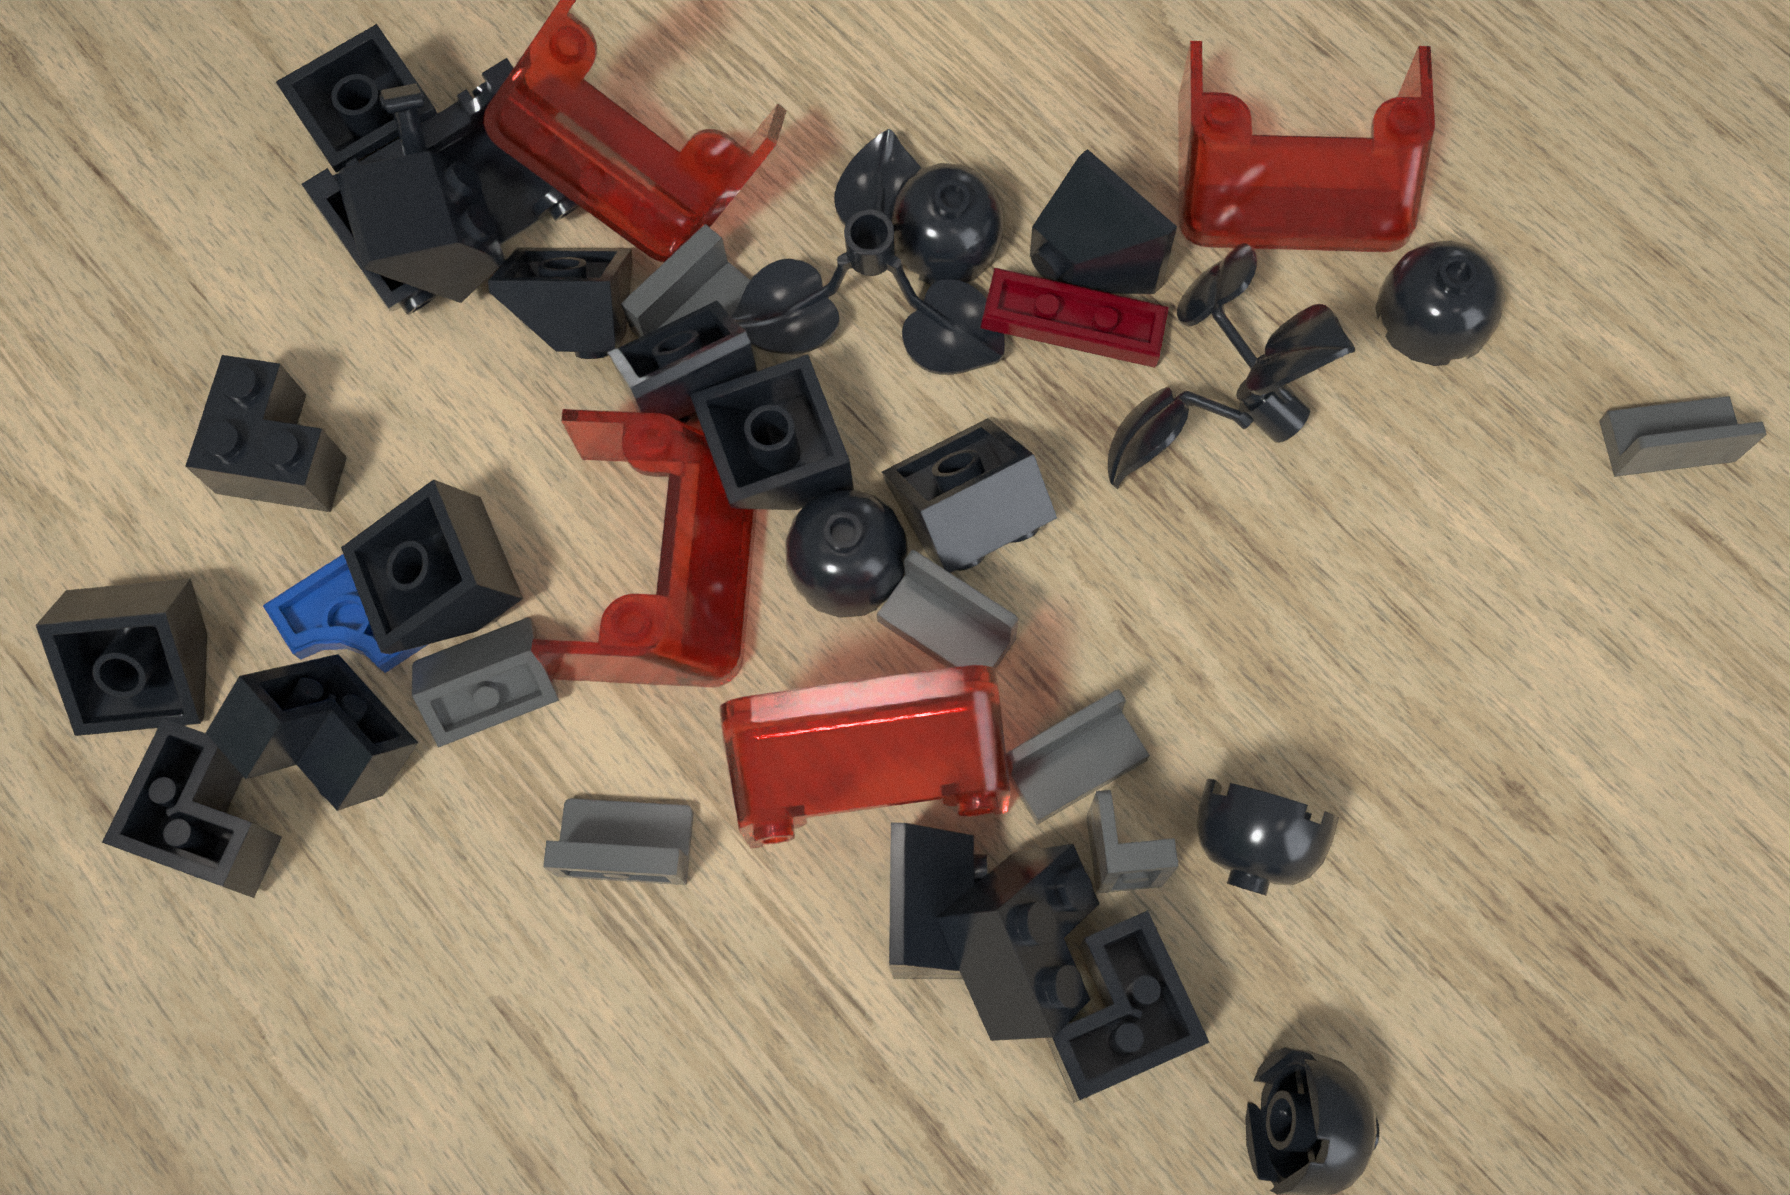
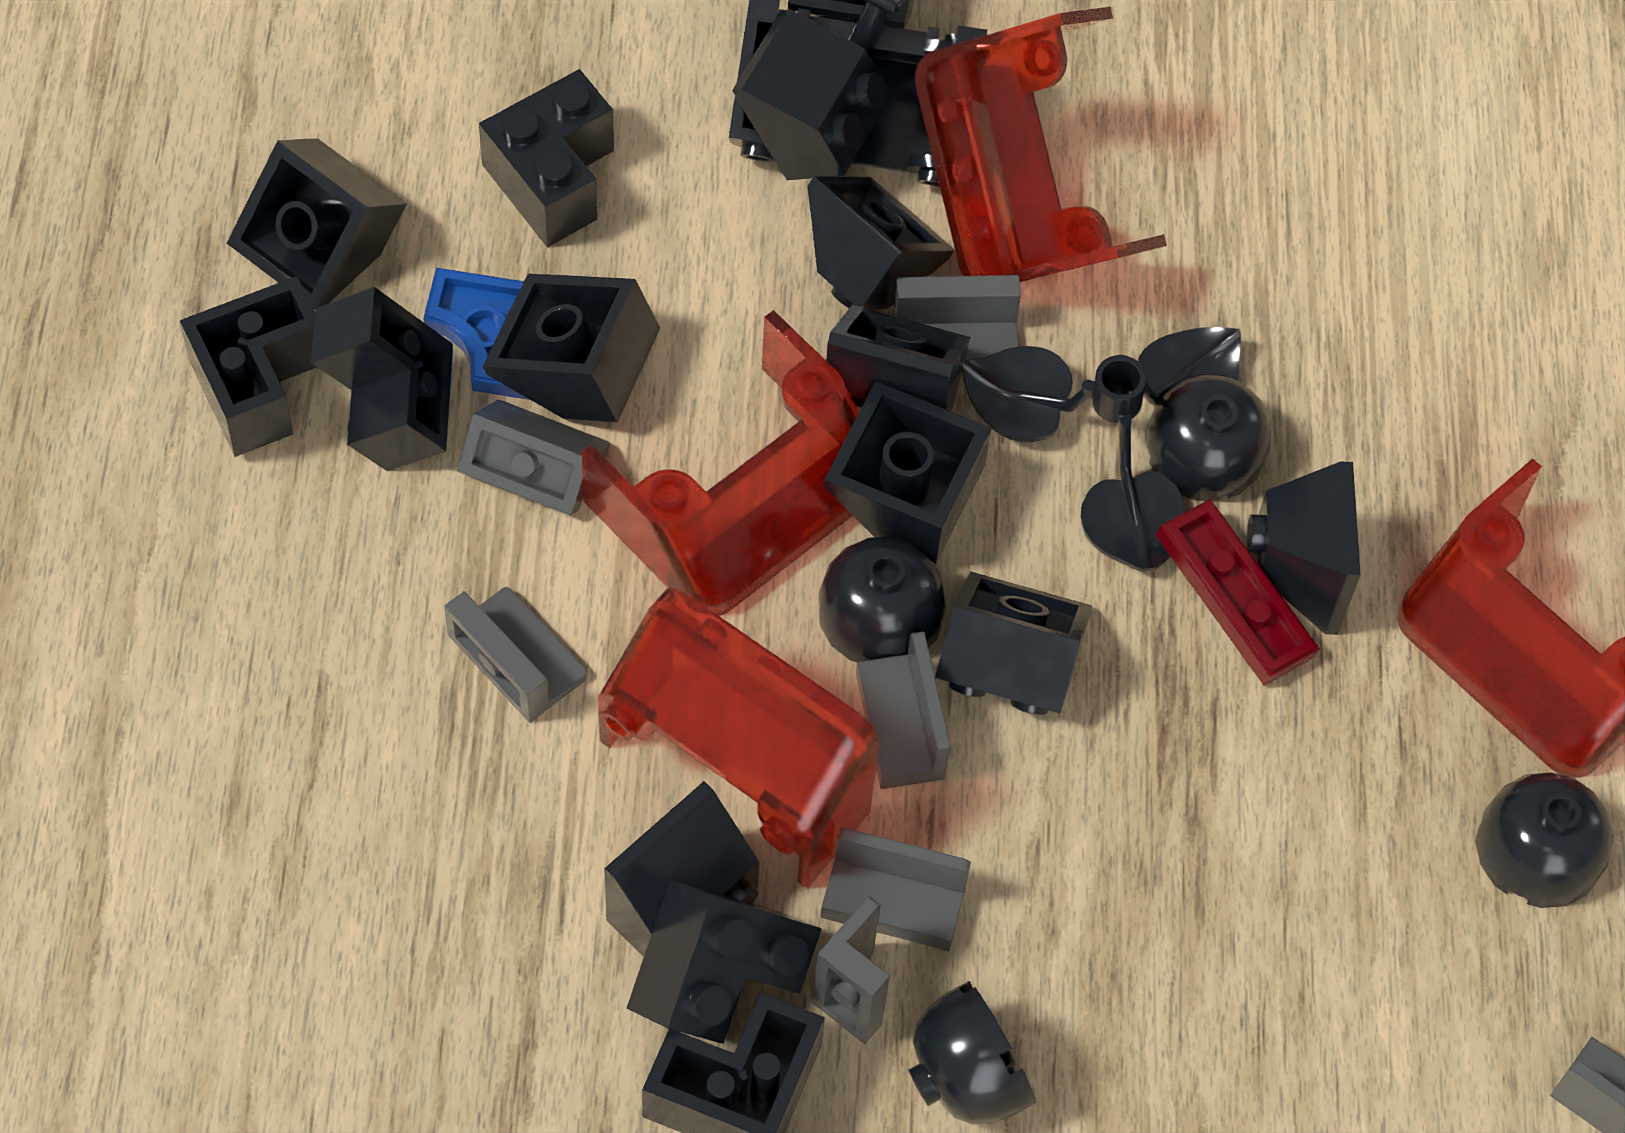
camera: 35 degrees right, 10 degrees down
(1265, 399) = (1318, 771): black plant -> none

